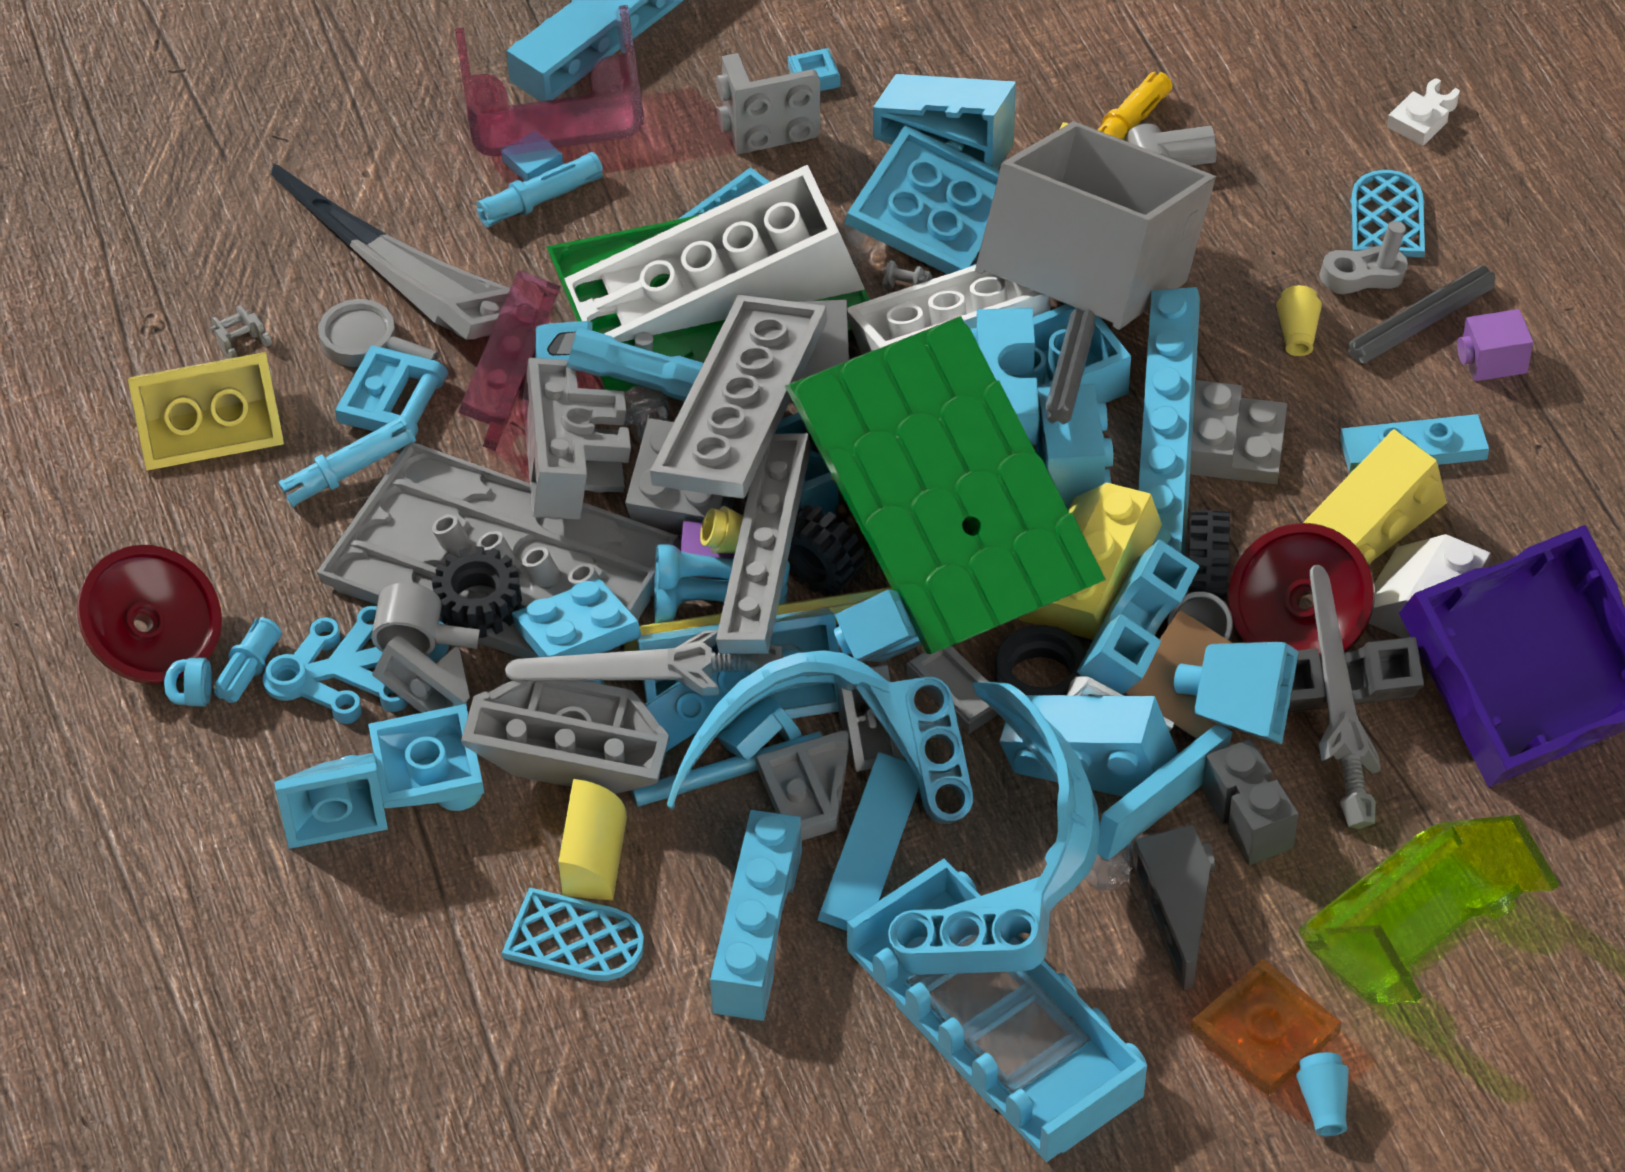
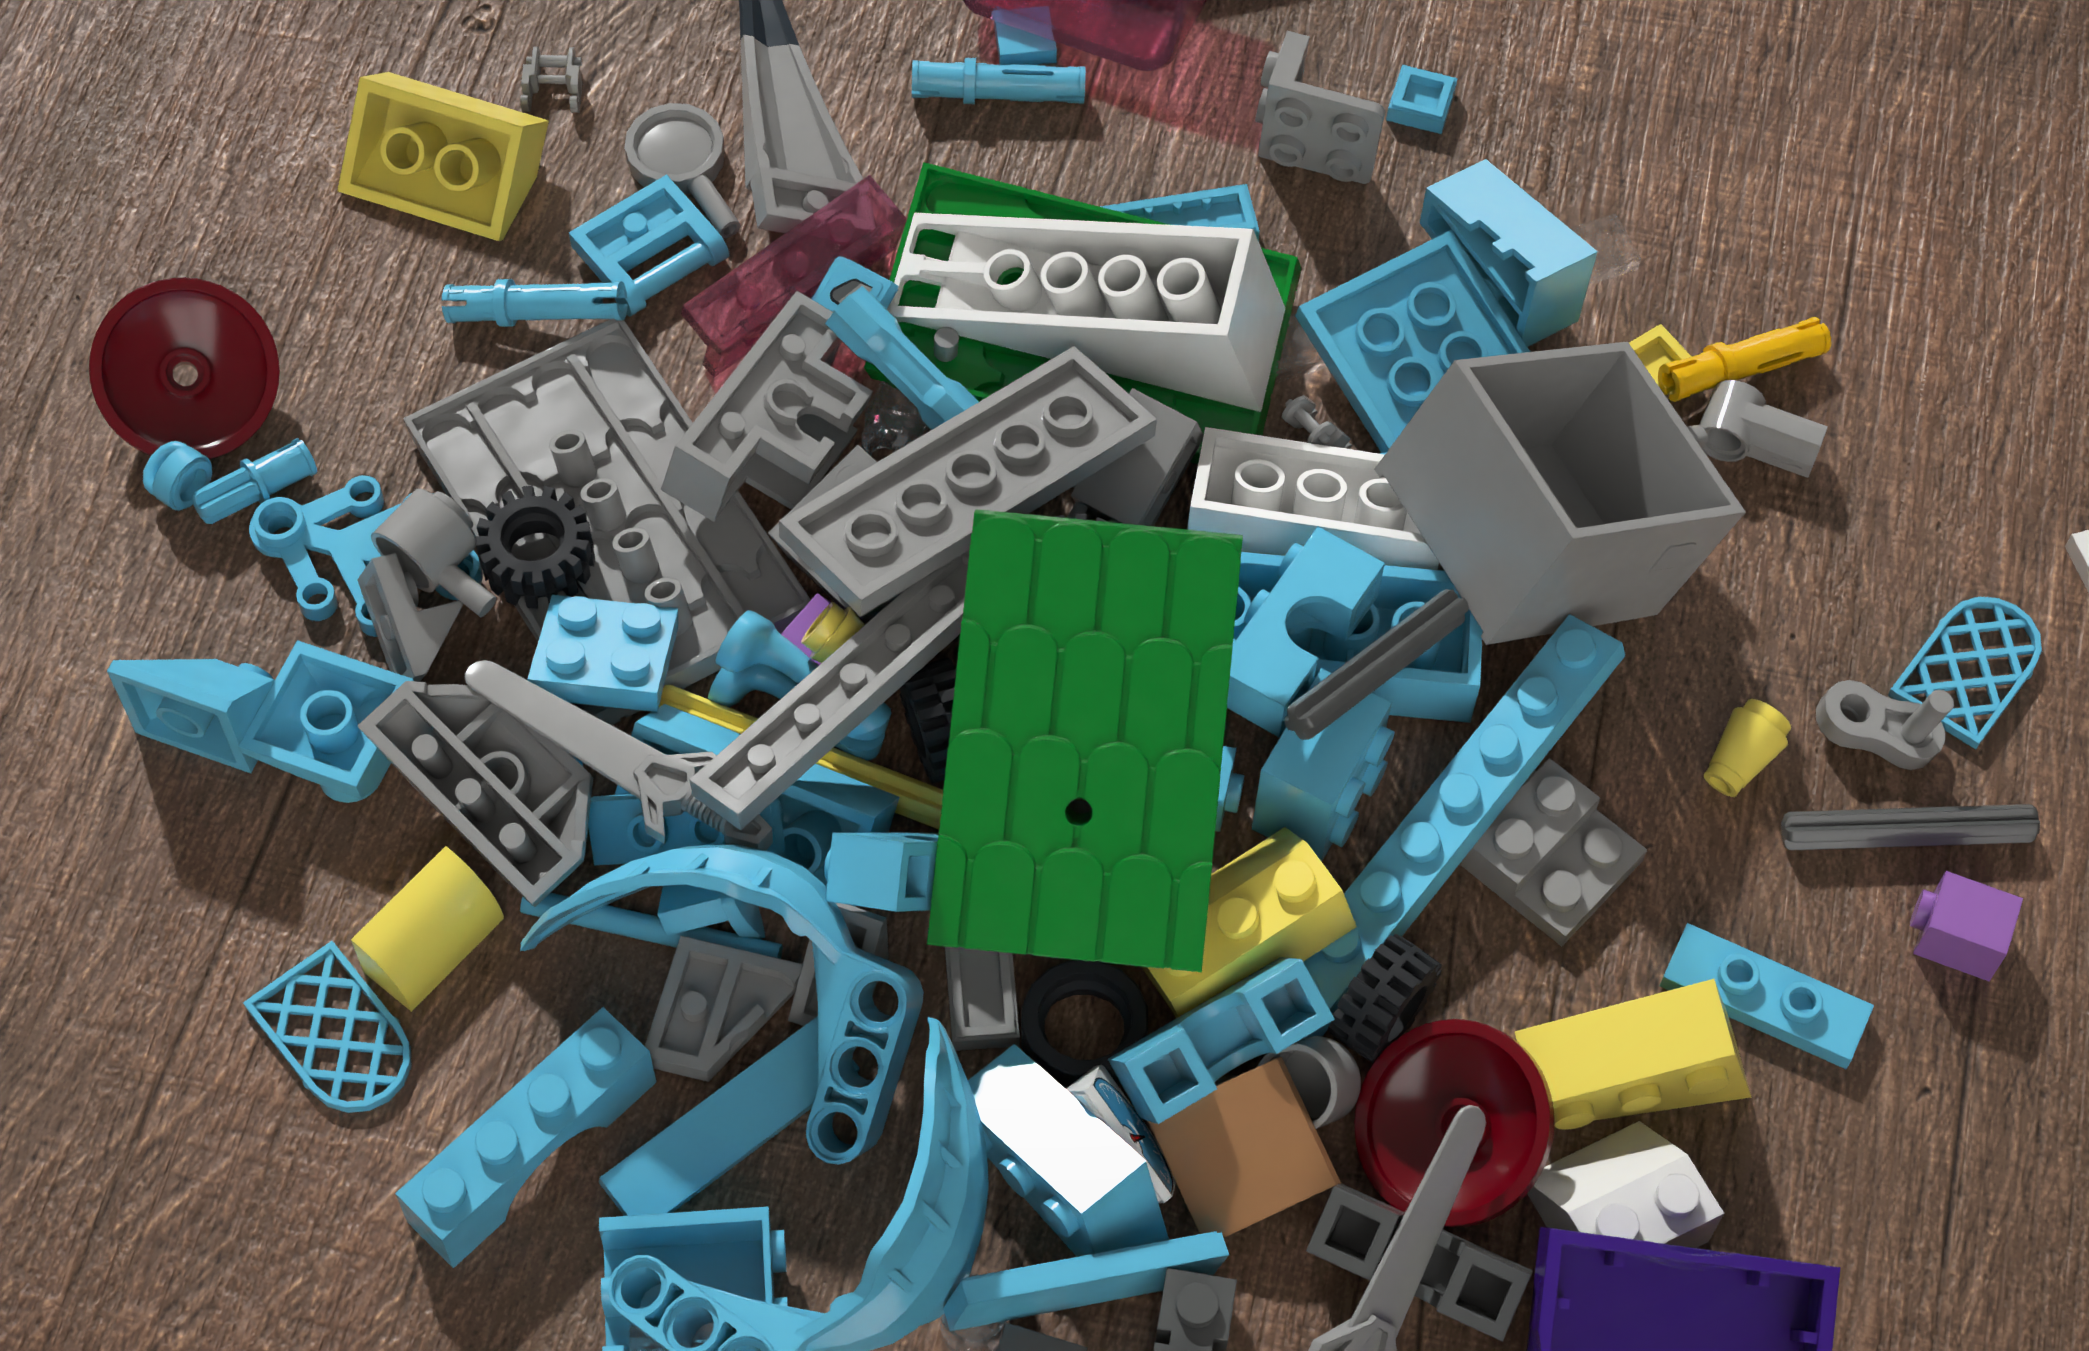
camera: 30 degrees right, 10 degrees up
(1243, 686) = (1269, 1213): medium azure torso -> none

